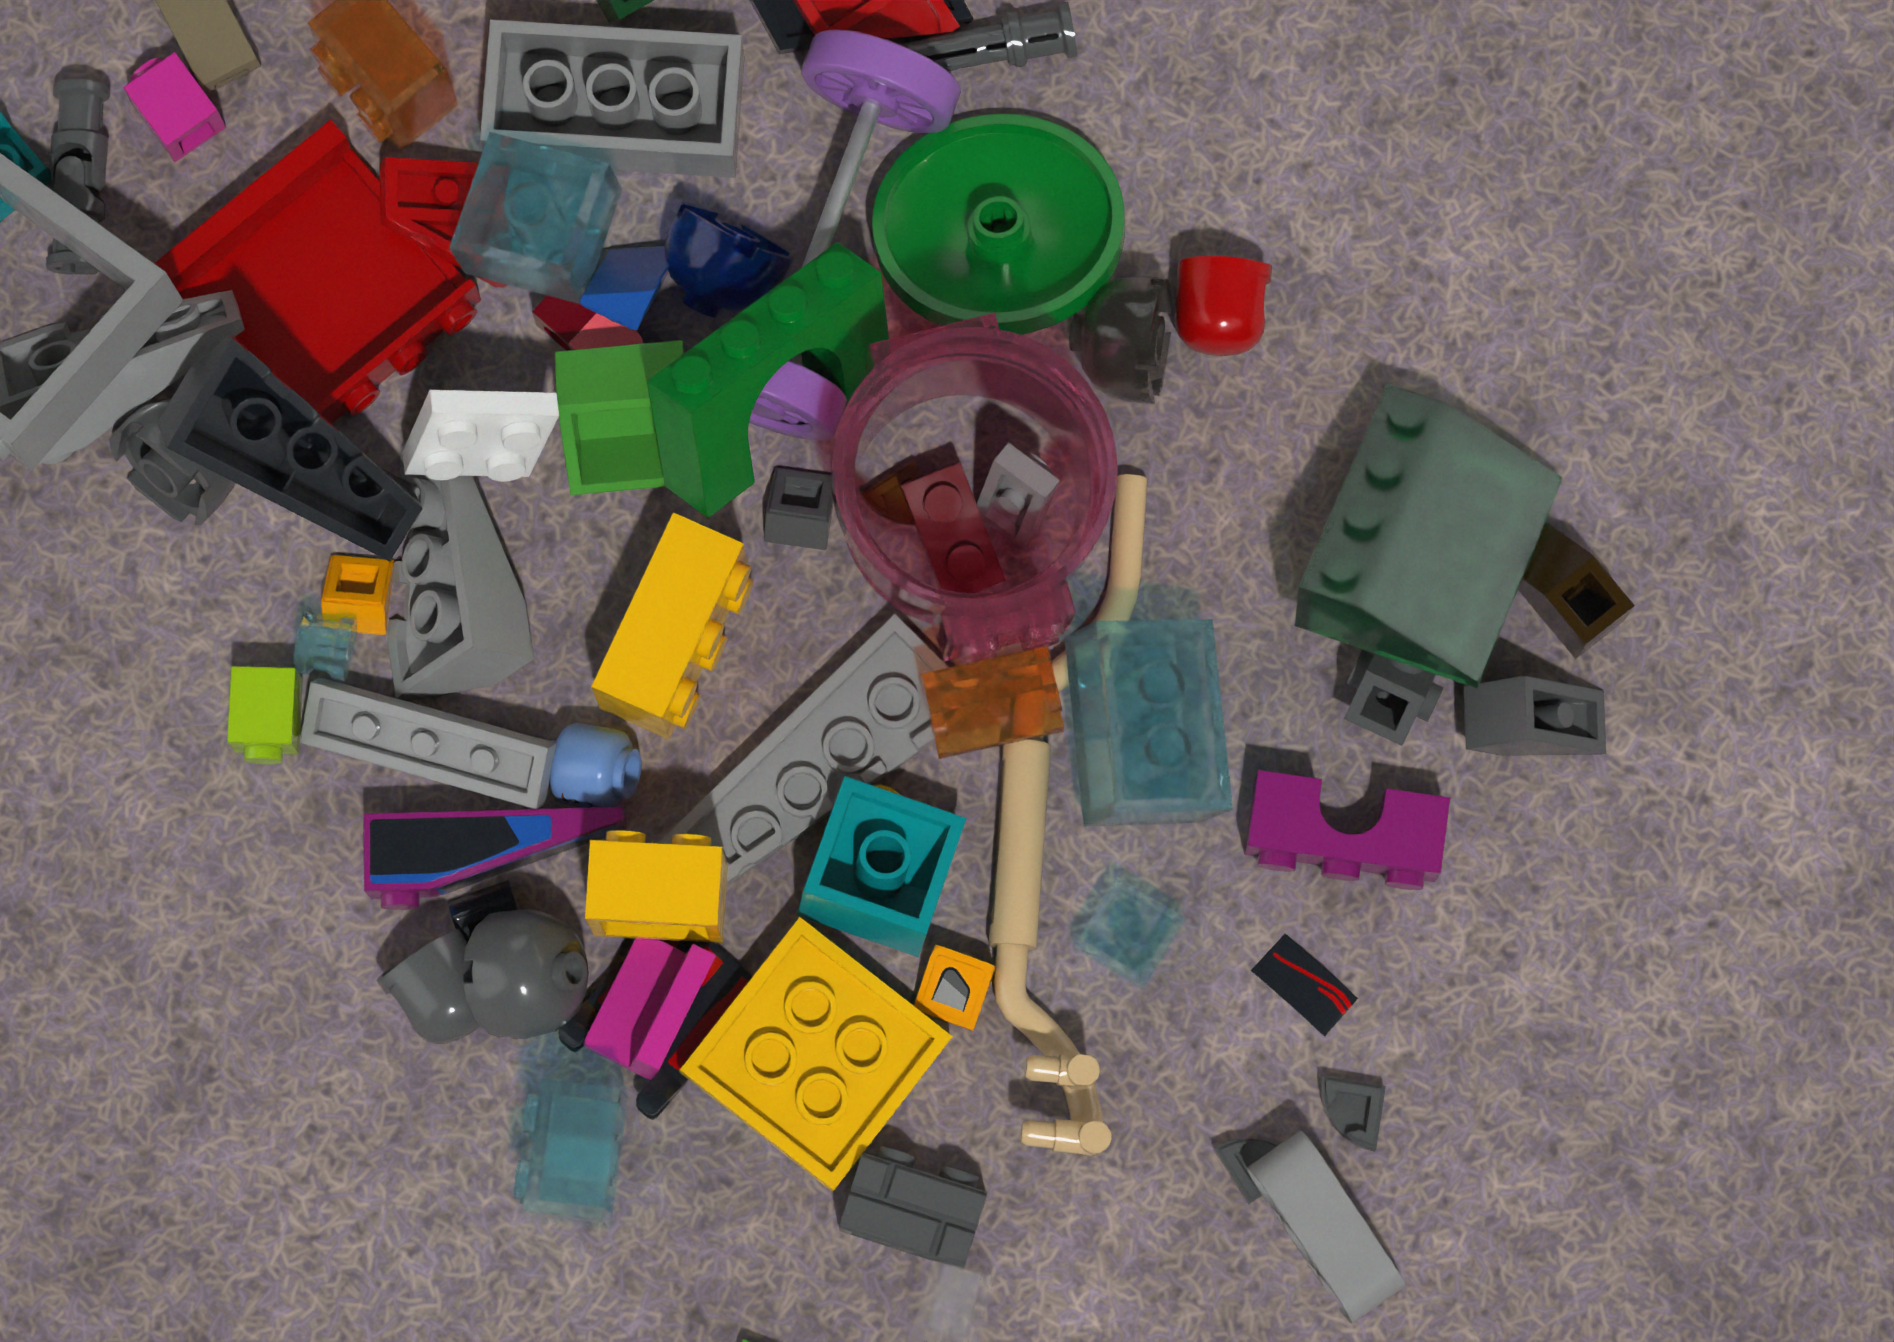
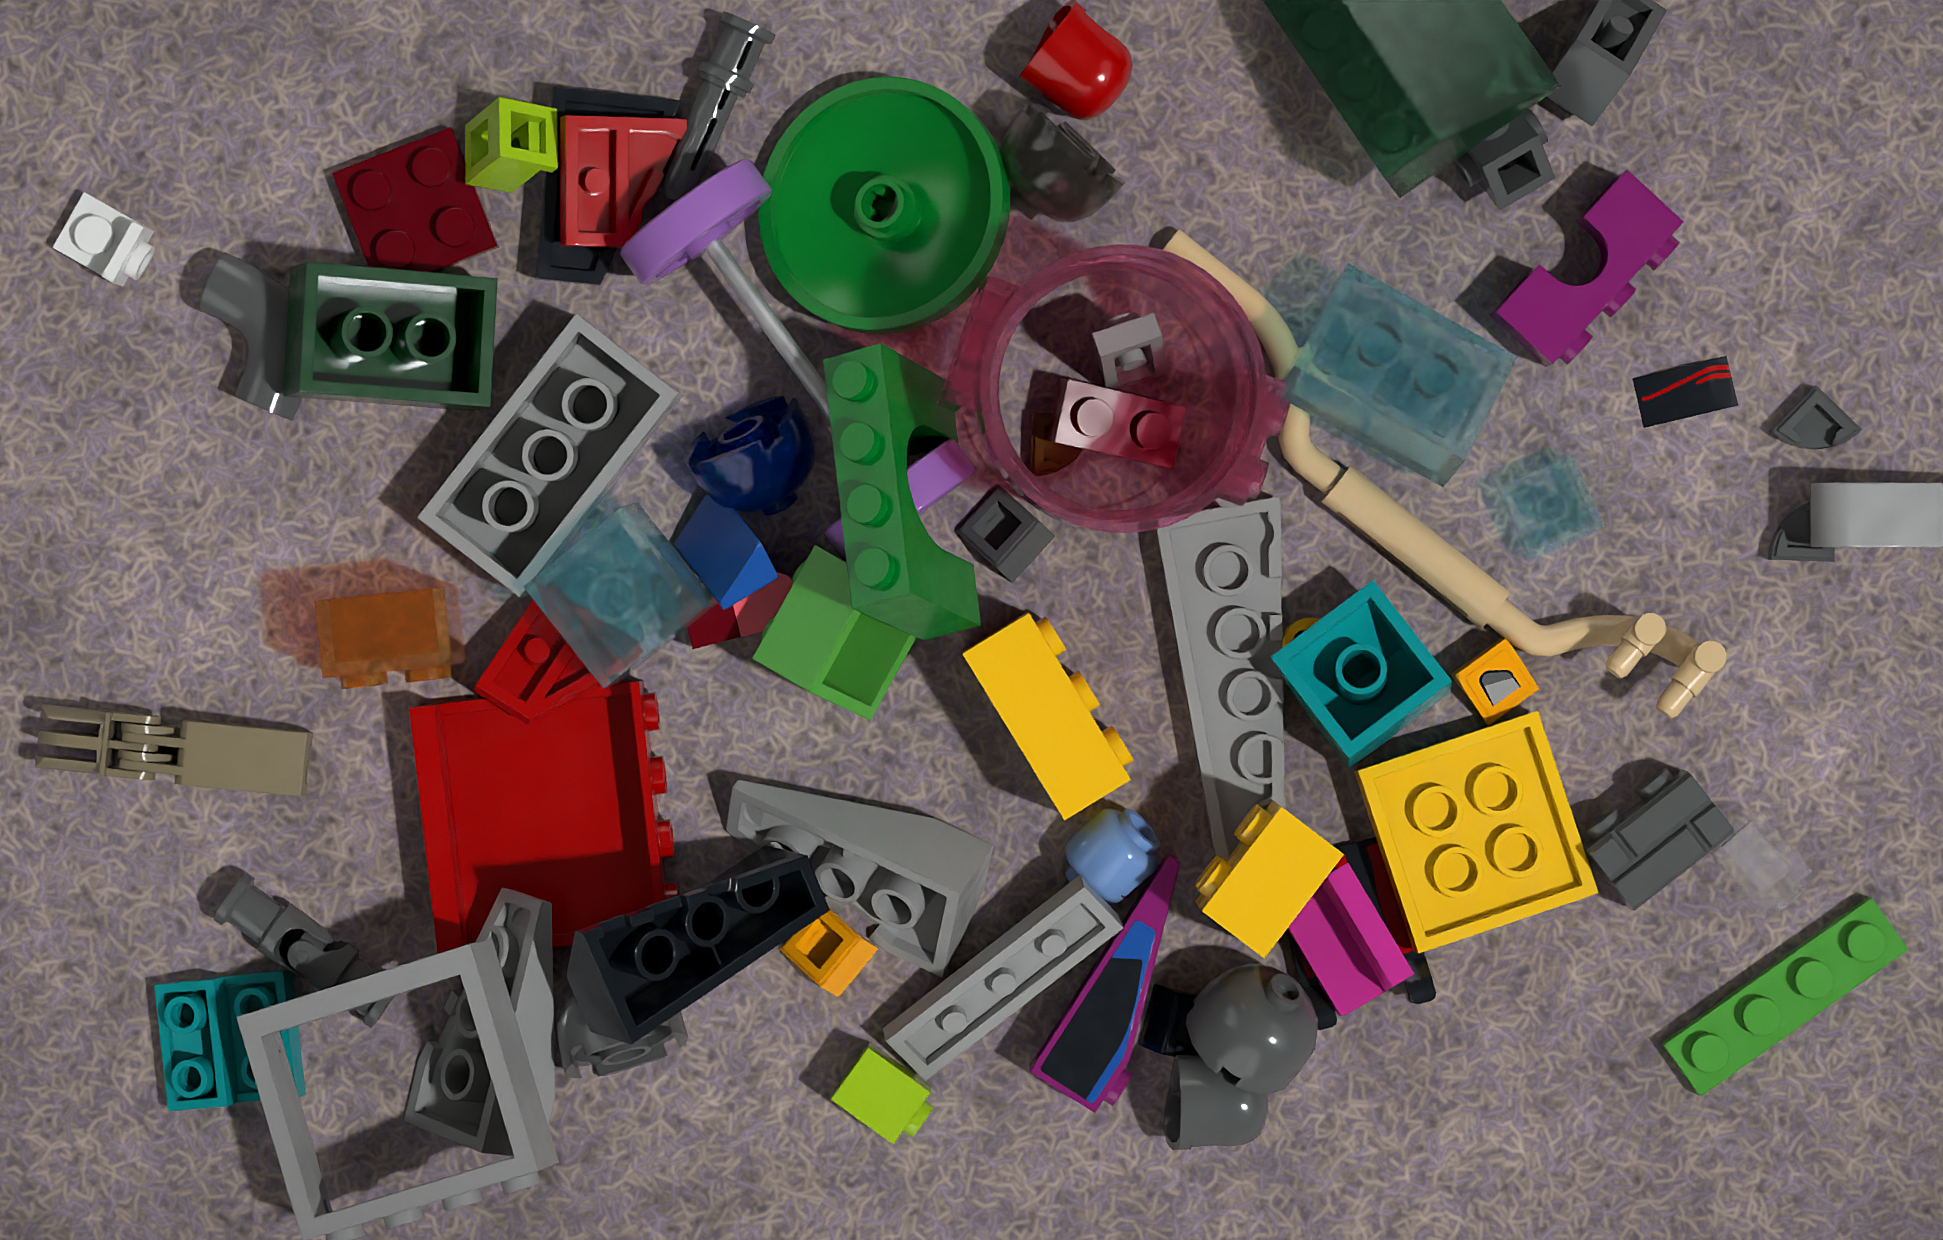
camera: 55 degrees left, 10 degrees up
(173, 105) = (299, 830): dark pink brick -> none
(325, 645) = (859, 1007): clear light blue wheel -> none
(480, 434) = (781, 769): white plate -> none
(573, 1153) = (1431, 1085): clear light blue brick -> none
(992, 702) = (1294, 493): clear orange hinge -> none

